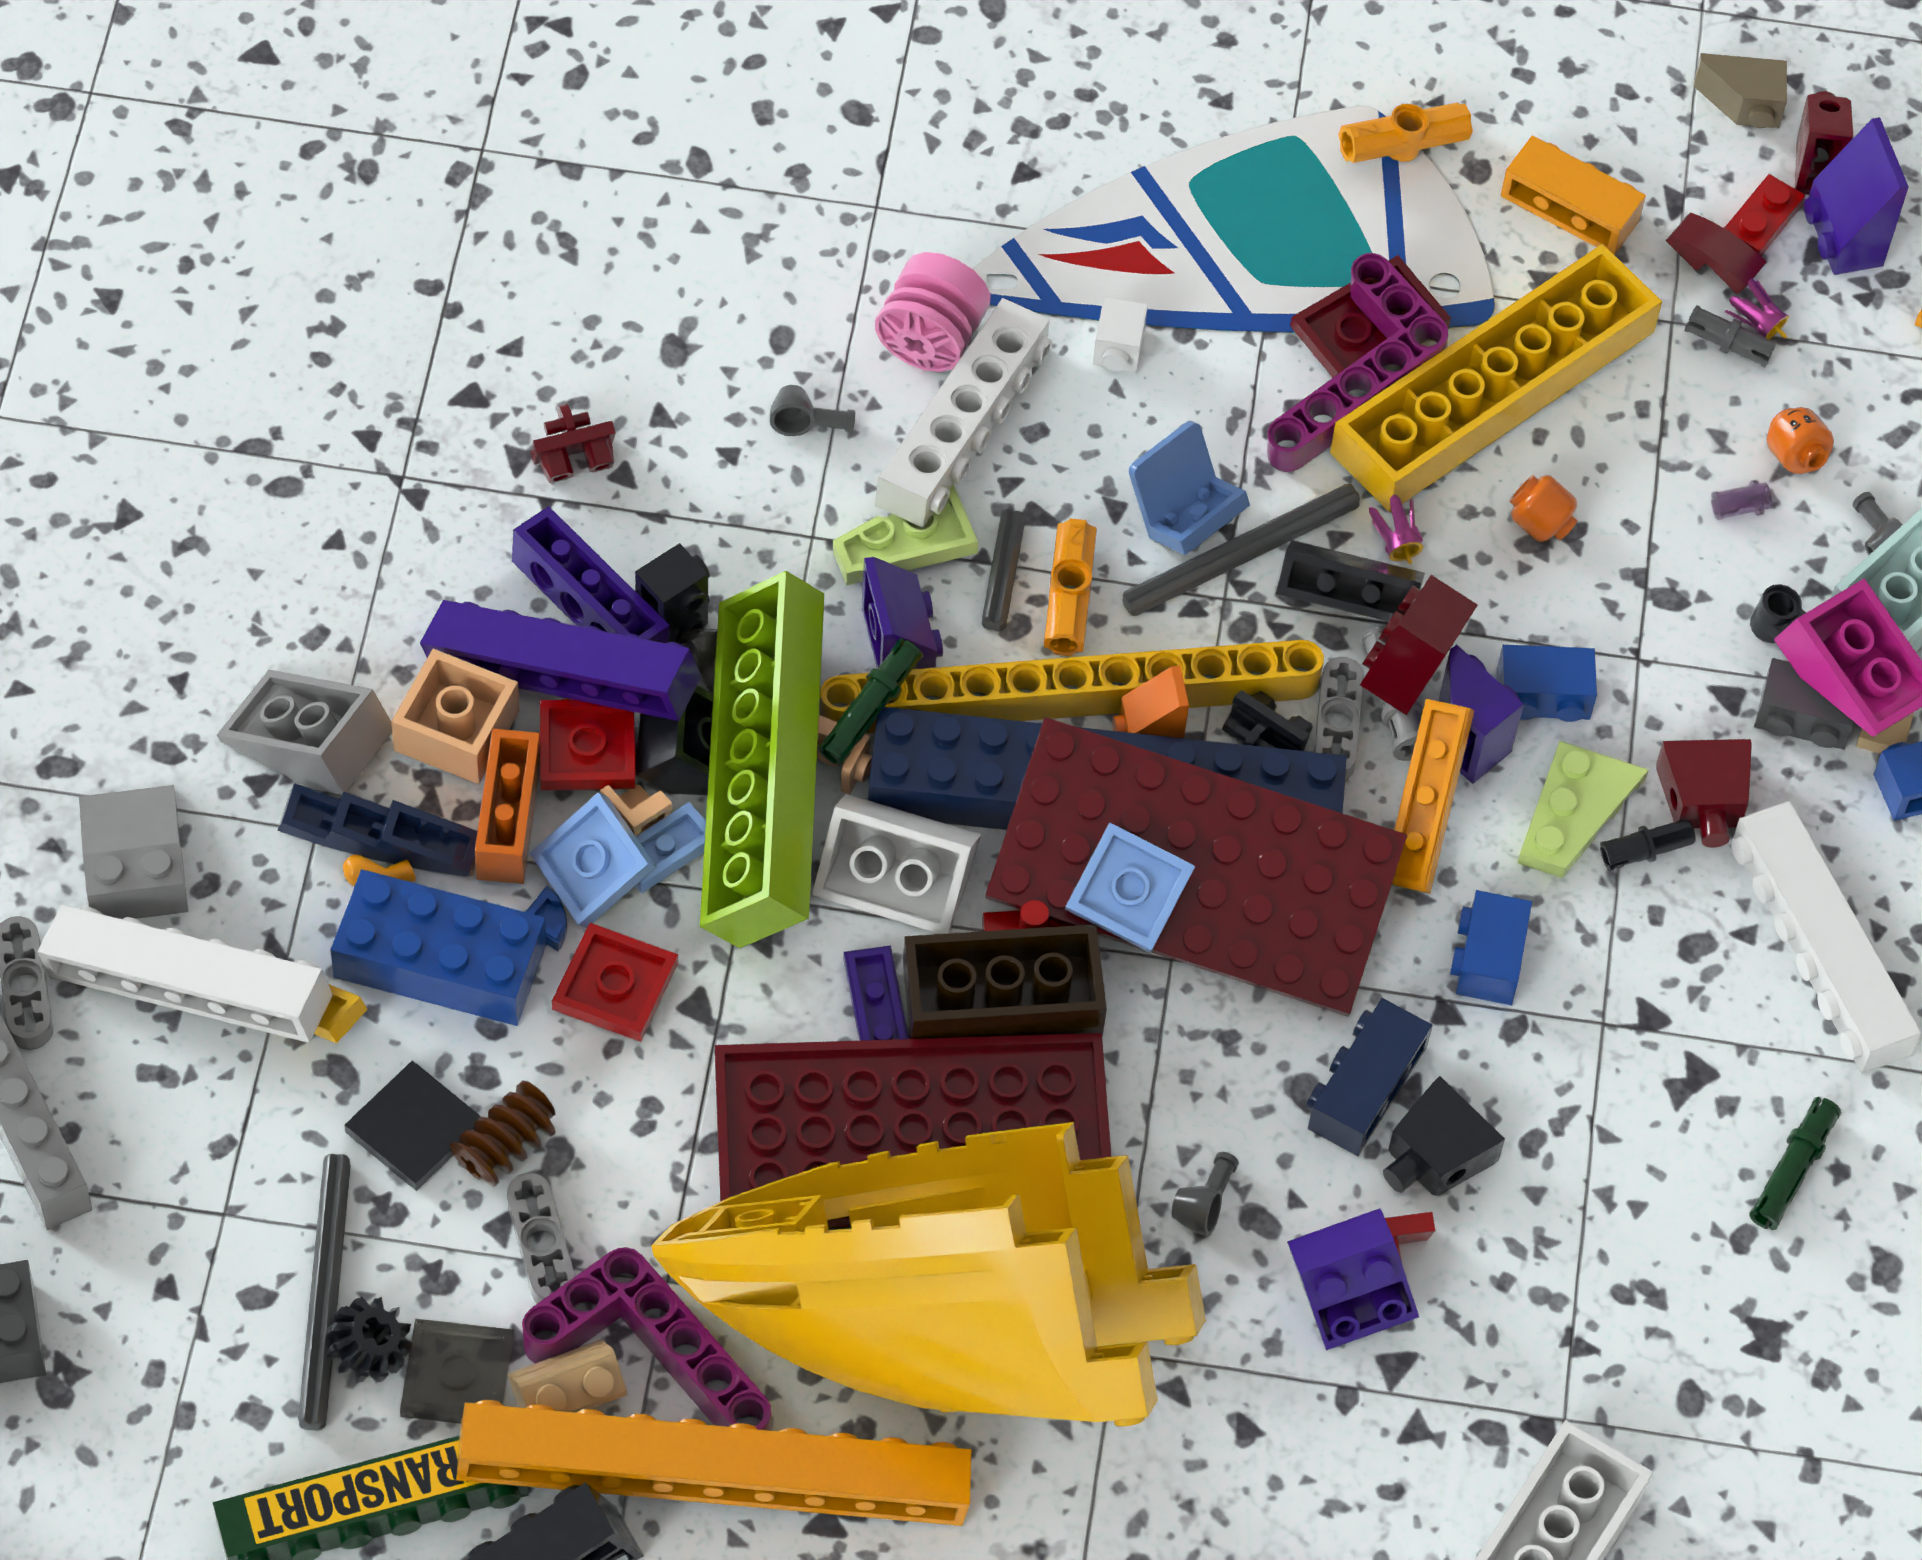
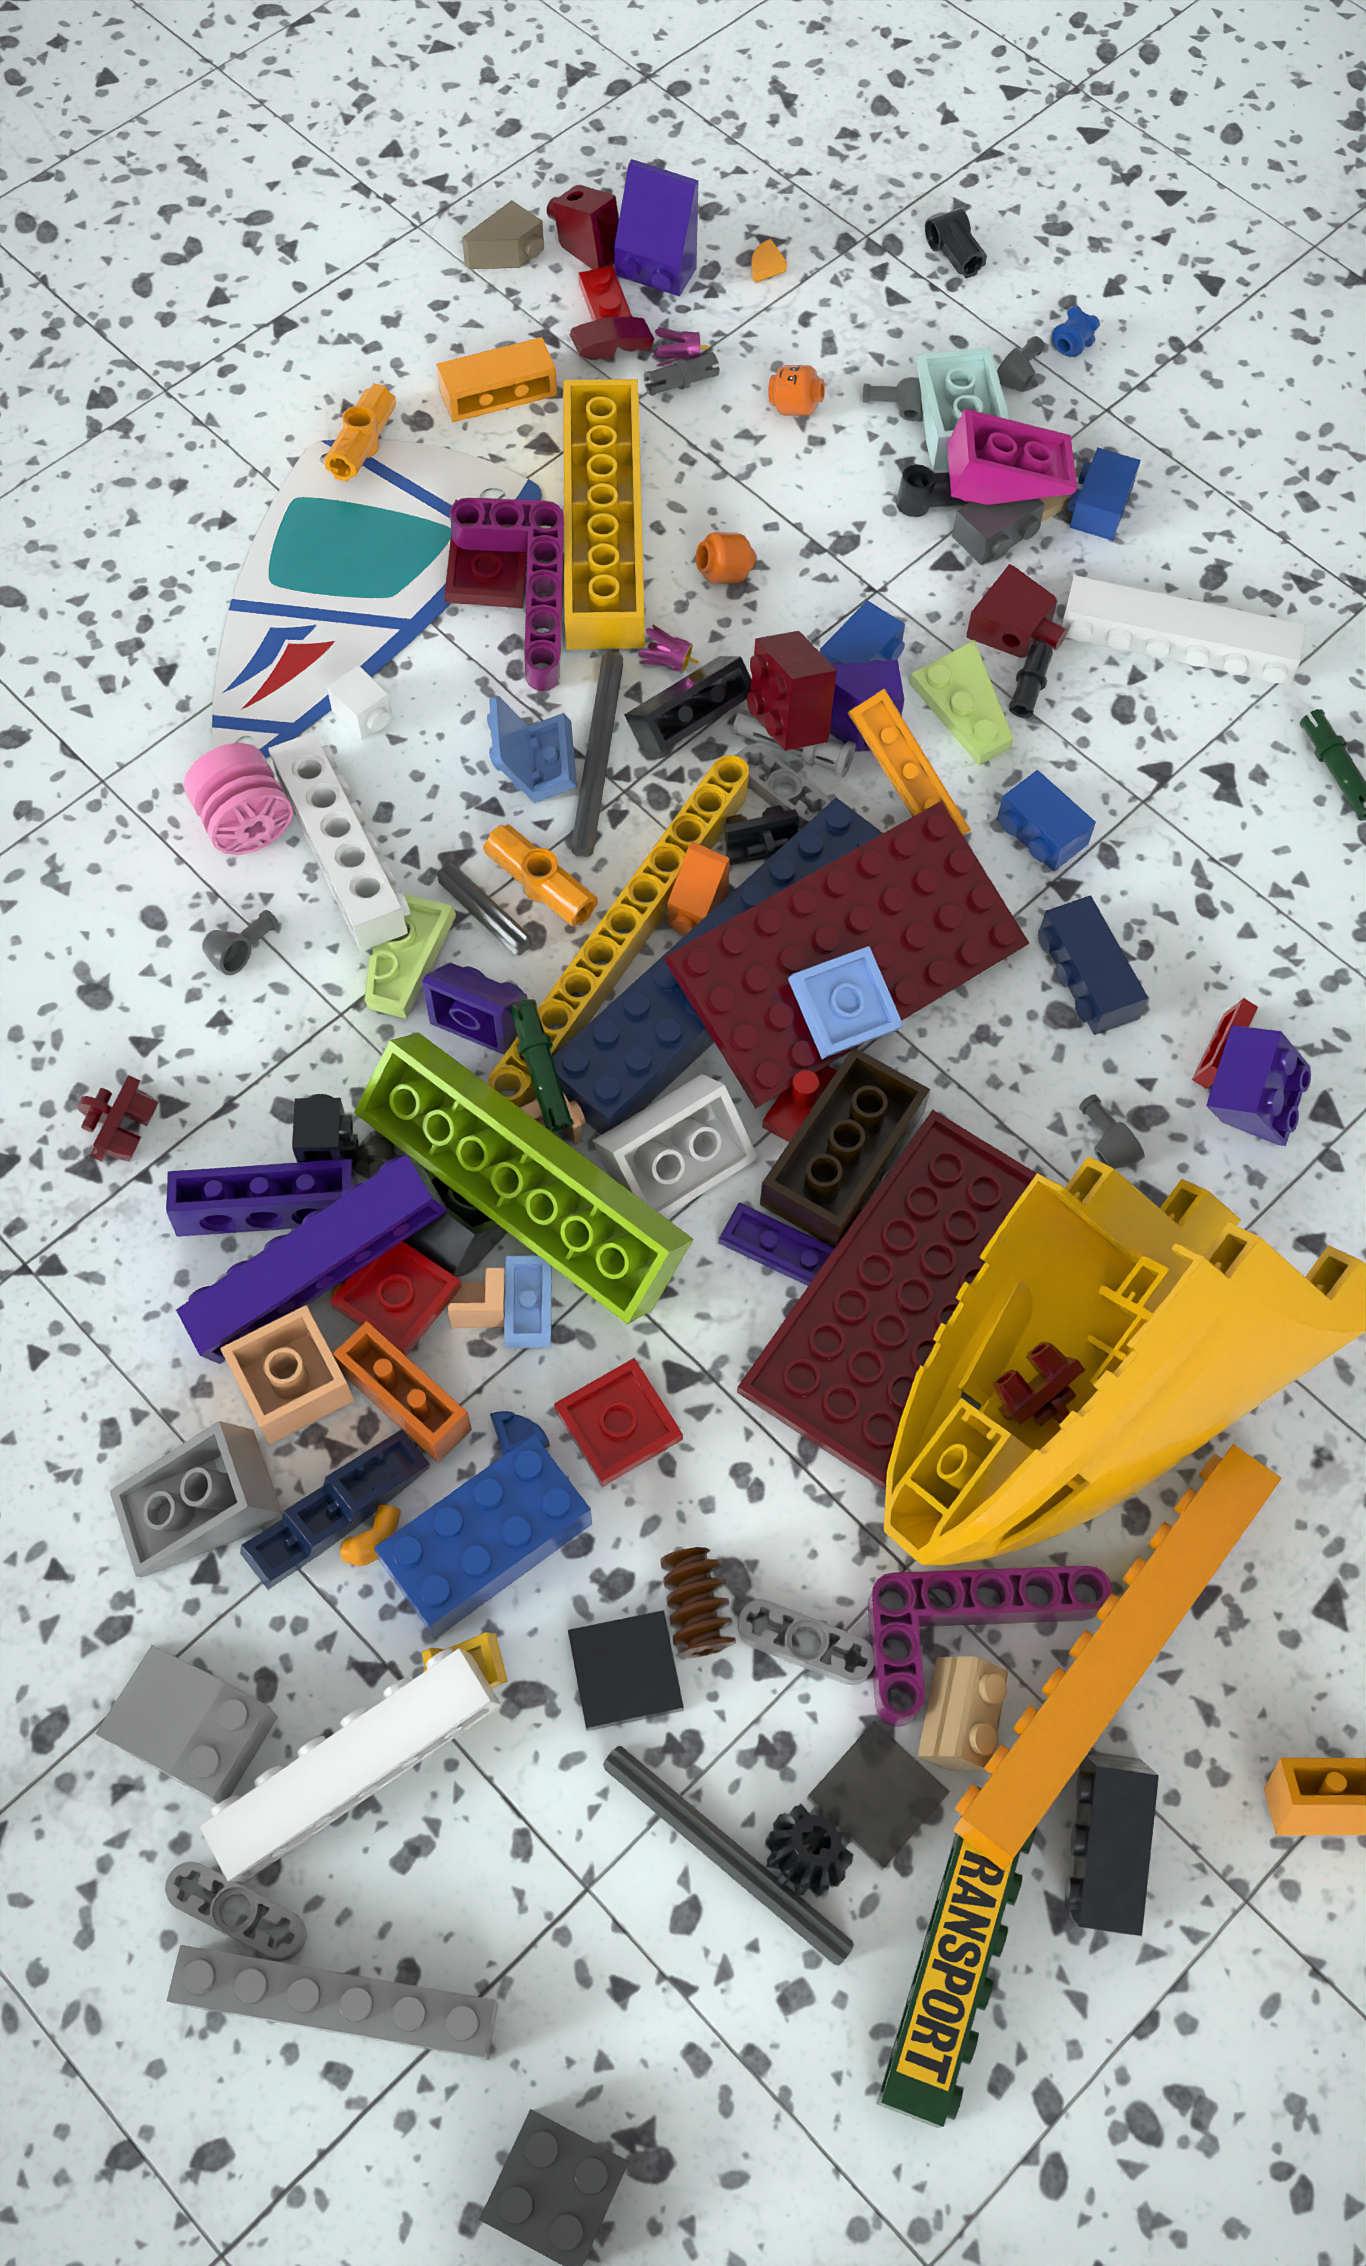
camera: 50 degrees left, 5 degrees up
(592, 860) = (502, 1362): light blue plate -> none
(1441, 1142) = (1176, 957): black torso -> none
(1742, 500) = (814, 445): clear purple pin -> none

